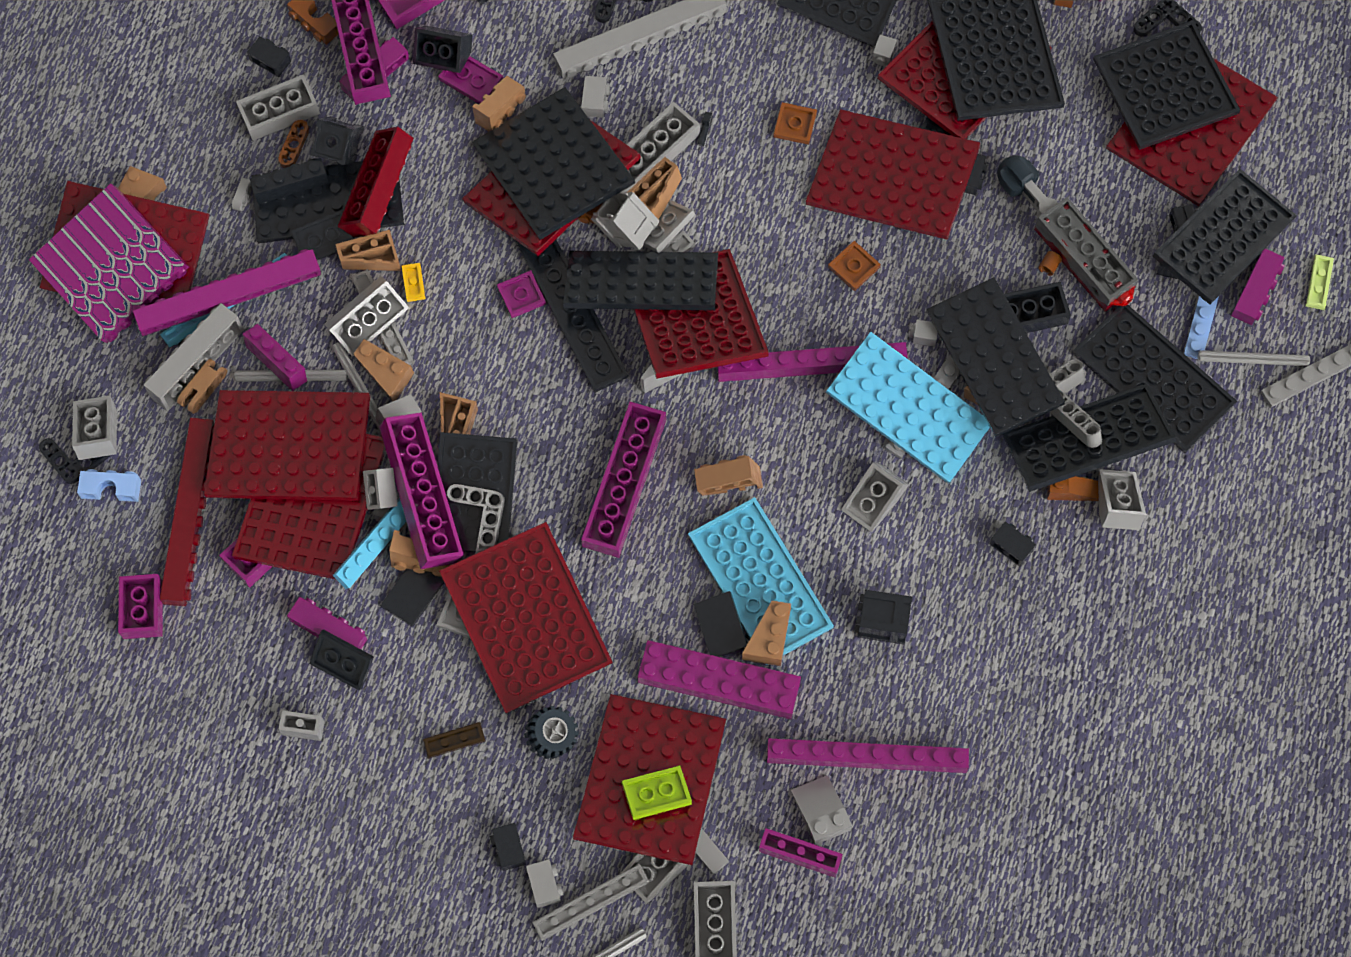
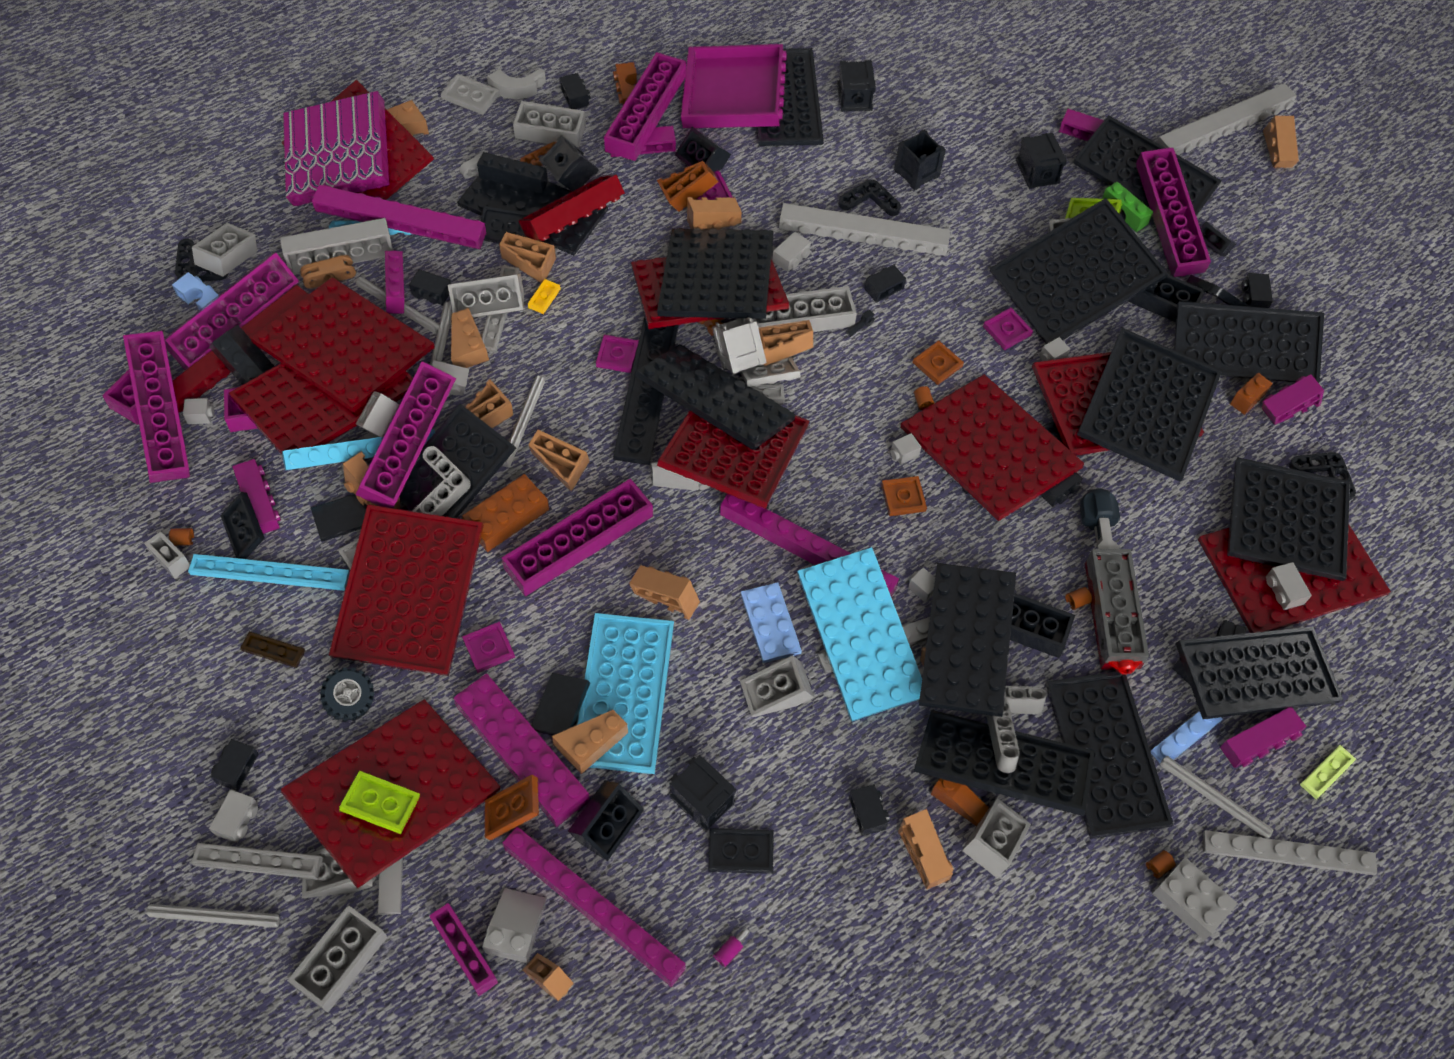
camera: 30 degrees right, 10 degrees down
(155, 481) = (230, 308): none -> magenta brick
(172, 122) = (470, 94): none -> light grey plate
(179, 609) = (156, 406): none -> magenta brick
(206, 516) = (240, 355): none -> black slope
(207, 588) = (198, 411): none -> light grey brick
(209, 89) = (517, 87): none -> light grey arch
(295, 702) = (181, 536): none -> dark orange beam
(307, 340) = (430, 287): none -> black brick
(395, 681) = (269, 572): none -> medium azure plate
(457, 91) = (690, 183): none -> dark orange wedge
(487, 398) = (524, 416): none -> light grey axle
(548, 495) = (508, 511): none -> dark orange brick
(552, 422) = (559, 457): none -> medium nougat wedge
(625, 618) = (488, 647): none -> magenta plate
(697, 75) = (885, 283): none -> black brick
(753, 727) = (511, 807): none -> dark orange plate
(807, 165) = (923, 397): none -> dark orange beam
(825, 687) = (606, 819): none -> black slope
(826, 222) = (905, 449): none -> light grey brick
(828, 445) = (770, 622): none -> light blue plate
(829, 52) = (1007, 328): none -> magenta plate
(875, 827) = (548, 976): none -> medium nougat slope
(941, 640) = (741, 850): none -> black tile
(988, 716) = (730, 948): none -> magenta piece
(1075, 545) = (925, 849): none -> medium nougat wedge
(1201, 146) = (1288, 586): none -> light grey brick
(1247, 438) = (1161, 864): none -> dark orange beam
(1287, 448) = (1195, 898): none -> light grey brick

